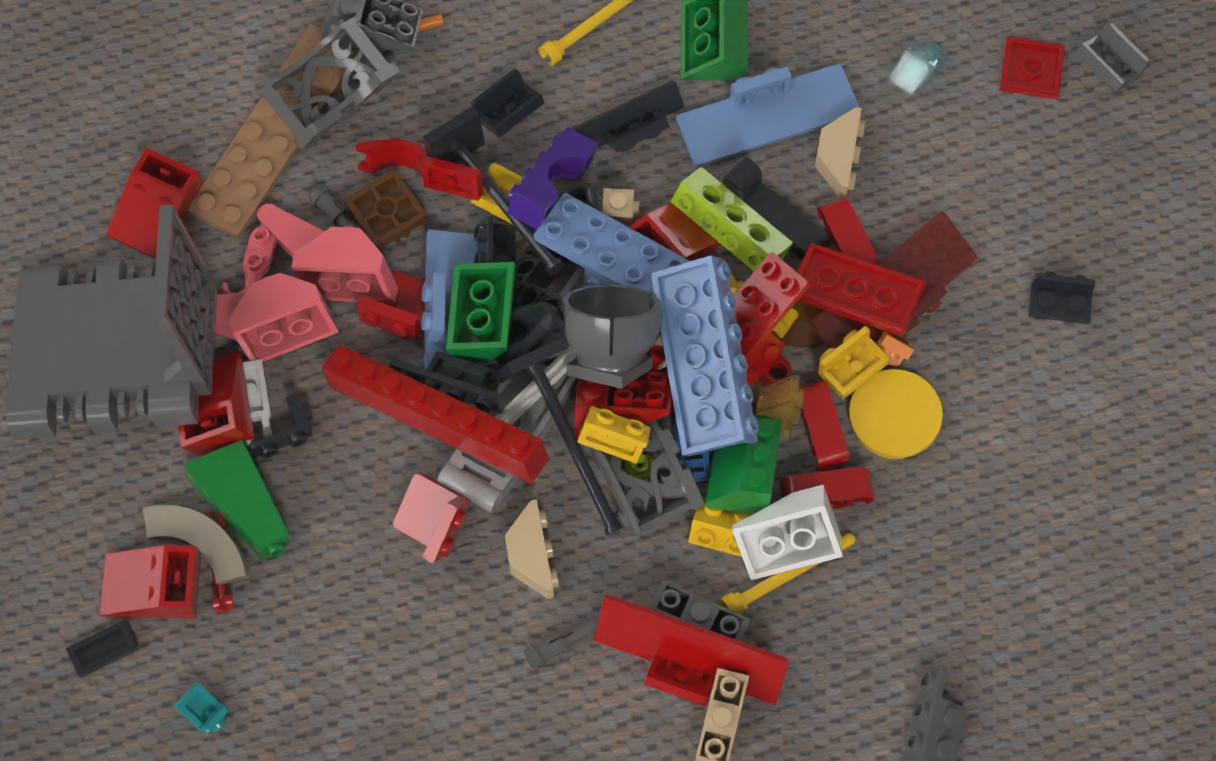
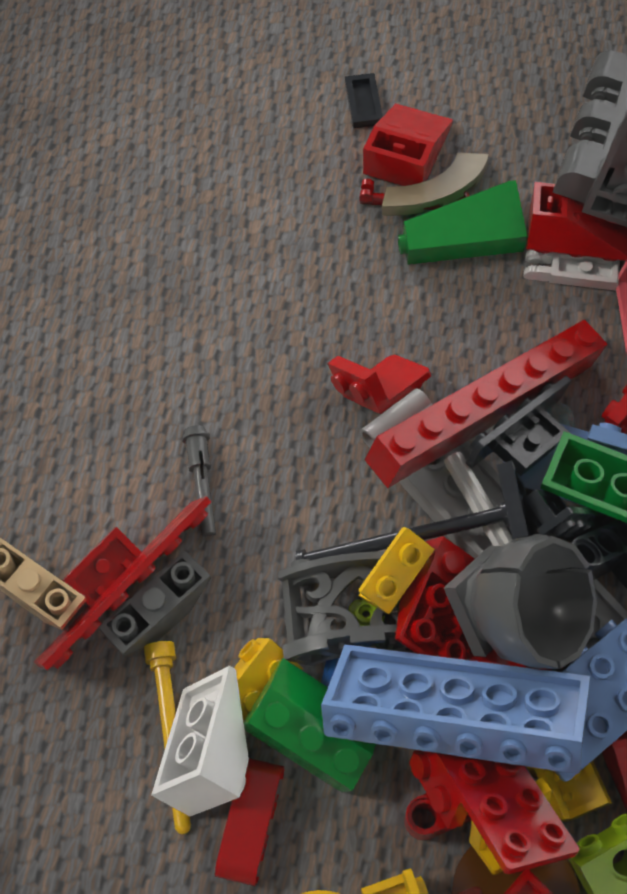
camera: 115 degrees right, 5 degrees down
(202, 709) = (271, 153): teal bracket -> none
(293, 436) = (536, 299): black bracket -> none
(530, 552) = (308, 464): tan slope -> none
(783, 402) = (374, 798): clear yellow slope -> none
(823, 426) = (337, 847): red beam -> none

